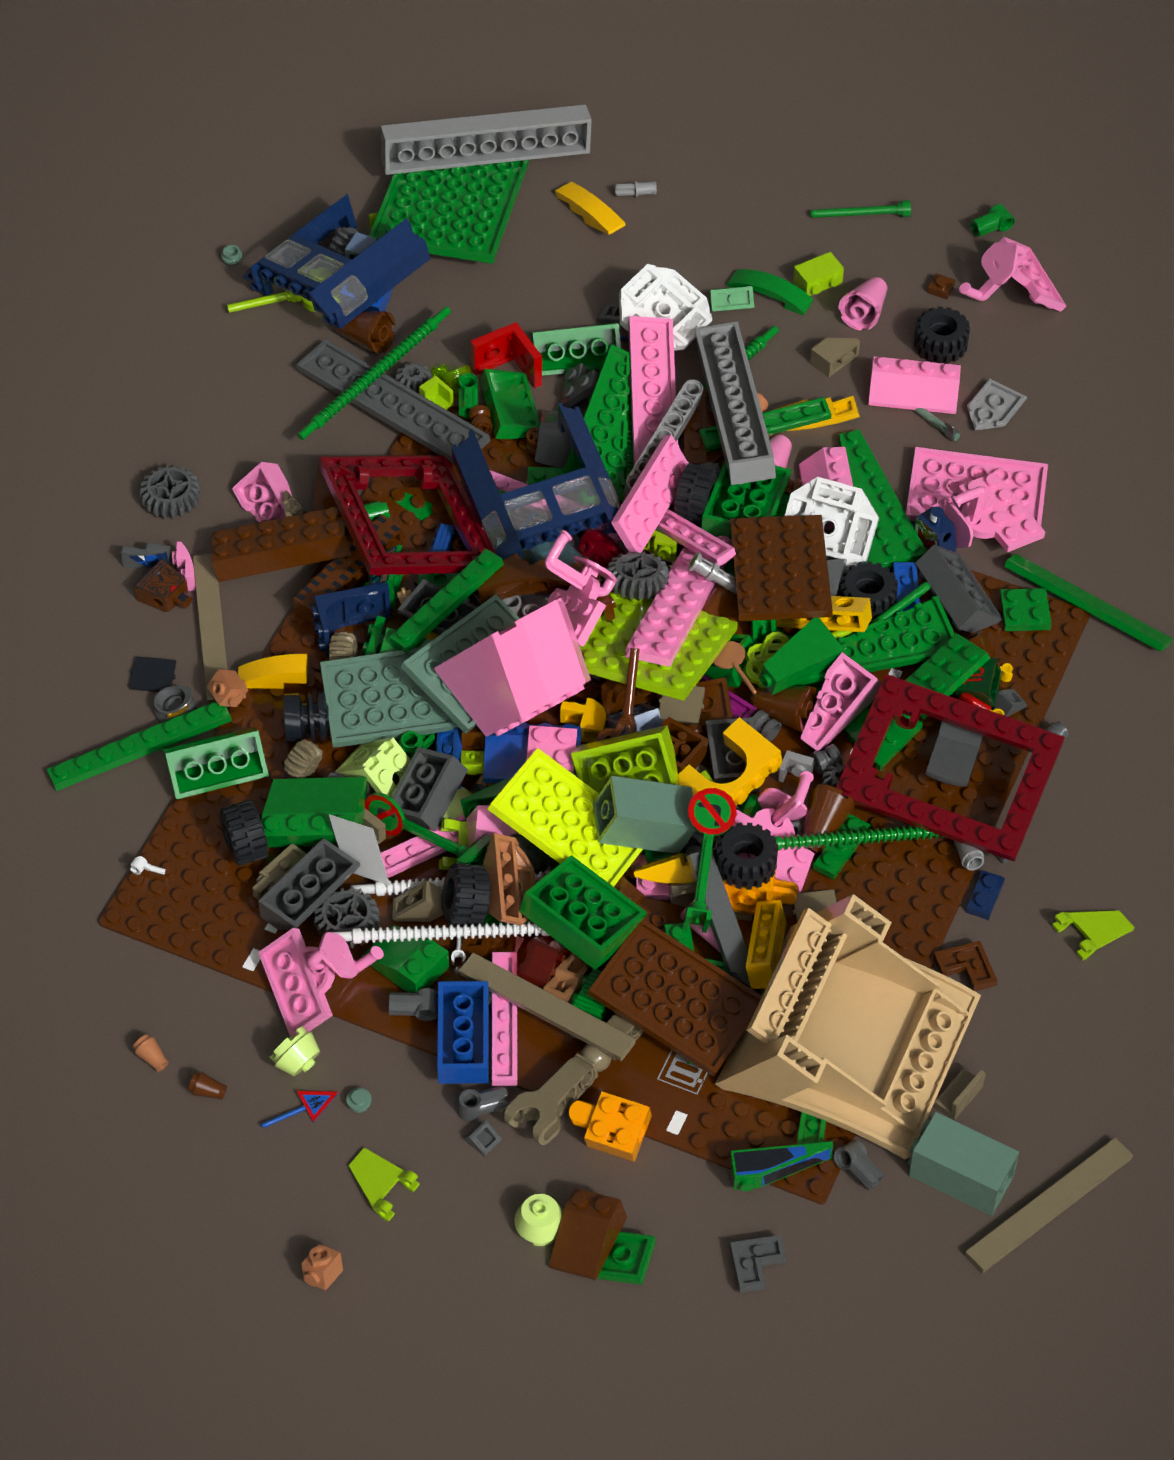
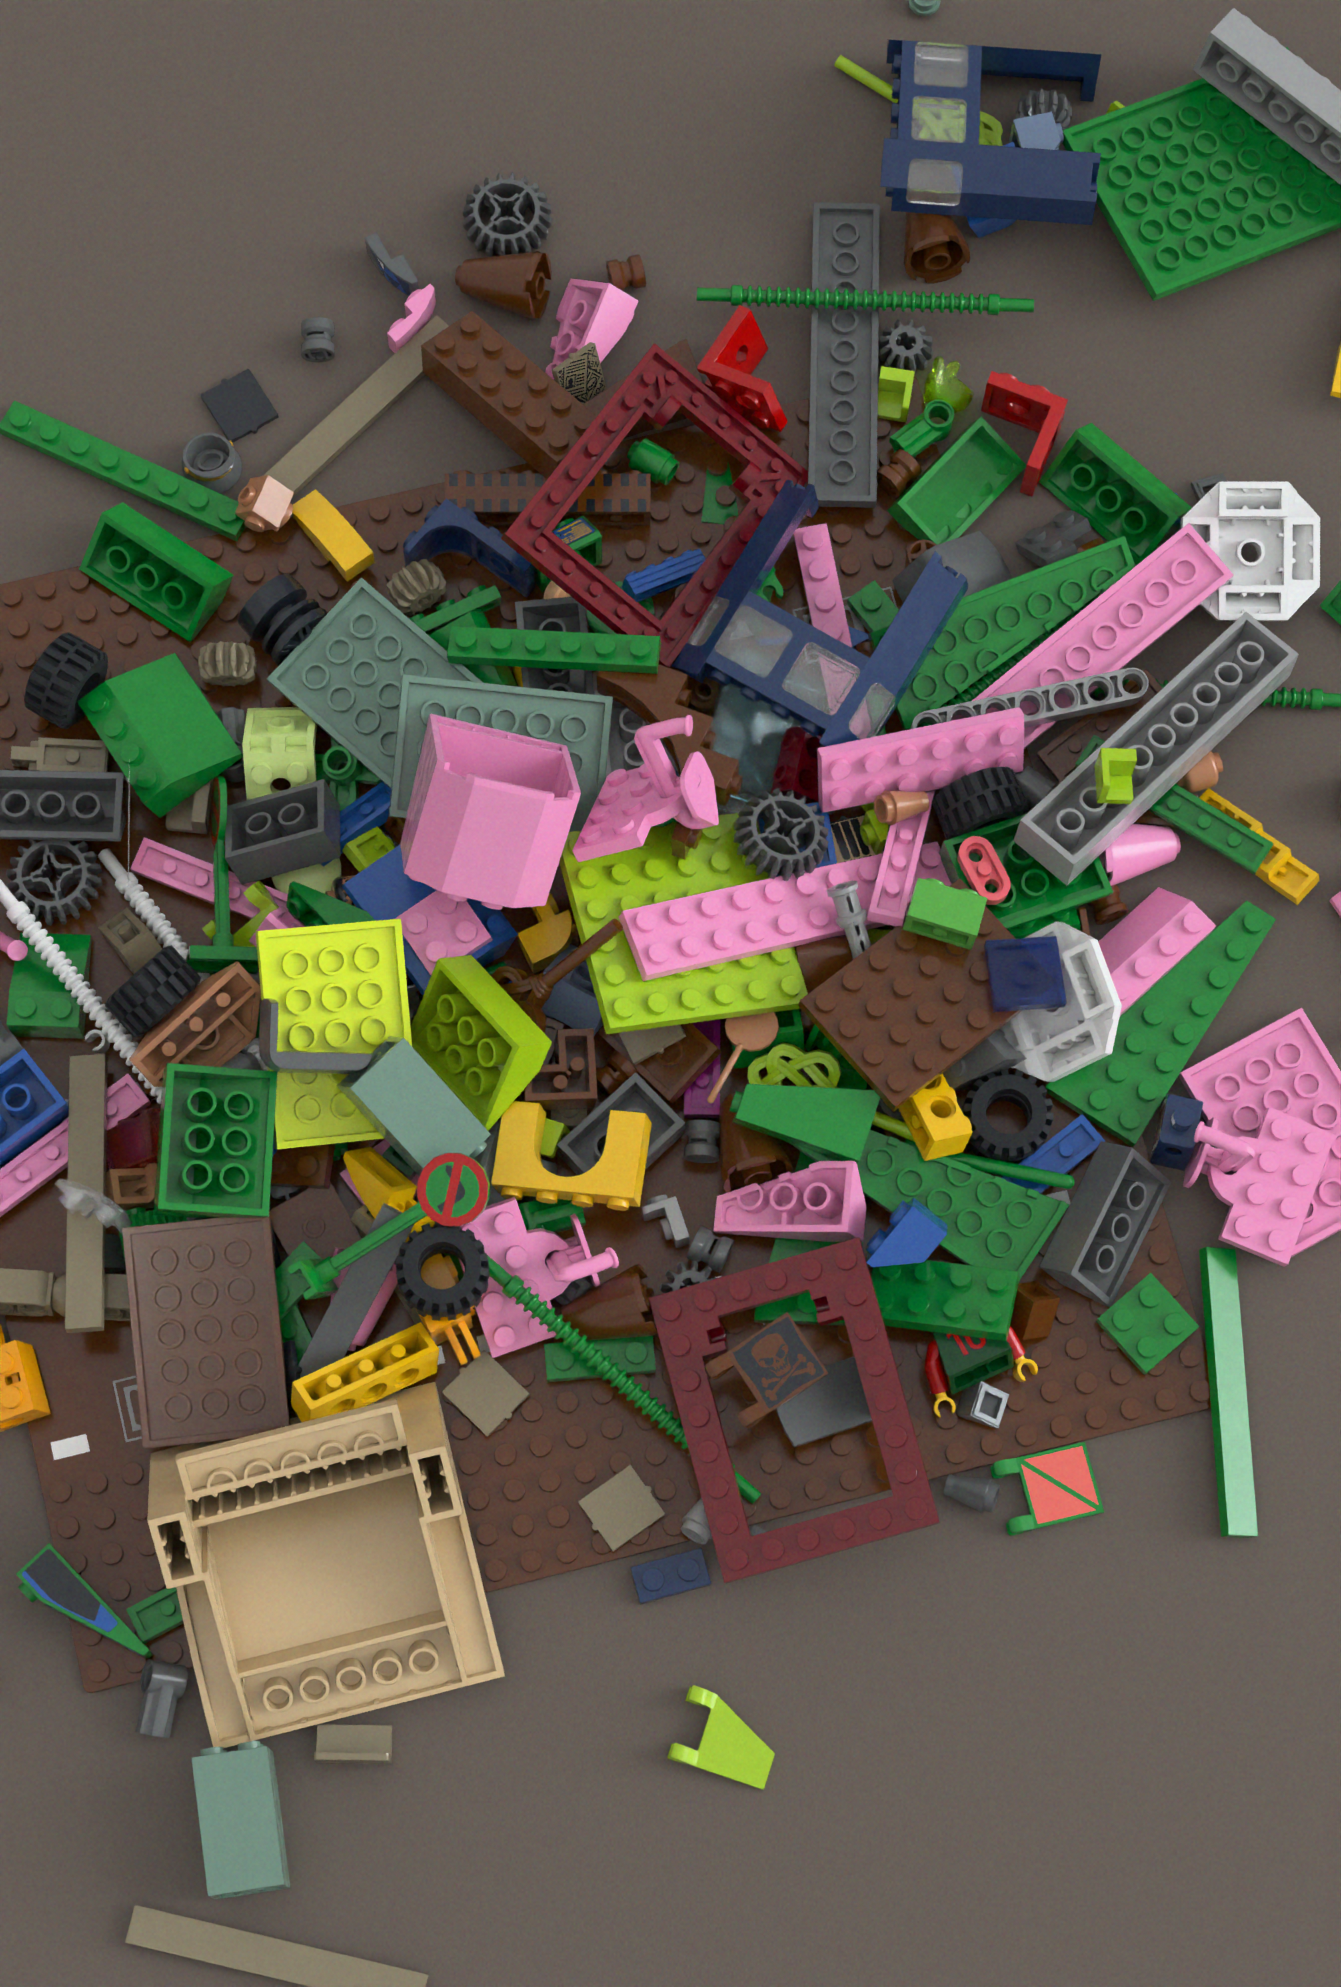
camera: 50 degrees right, 20 degrees up
(153, 613) = (317, 339): none -> dark grey wheel
(163, 588) = (363, 320): reddish brown torso -> none
(208, 511) = (508, 281): none -> reddish brown cone
(254, 457) = (626, 273): none -> reddish brown wheel
(368, 446) = (730, 368): none -> red bracket
(552, 1001) = (89, 1201): none -> clear slope
(559, 838) = (301, 1060): none -> dark grey piece
(666, 521) = (899, 805): none -> nougat cone
(735, 506) = (986, 871): none -> coral plate
(738, 416) = (1114, 775): none -> lime panel
(748, 527) = (945, 913): none -> bright green brick
(808, 519) = (1025, 974): none -> clear blue tile
(900, 654) = (909, 1238): none -> blue slope
(921, 754) = (773, 1364): none -> flag
(931, 889) = (621, 1508): none -> dark tan piece
(968, 959) = (556, 1626): reddish brown plate -> none
(1077, 704) = (1055, 1485): none -> coral flag

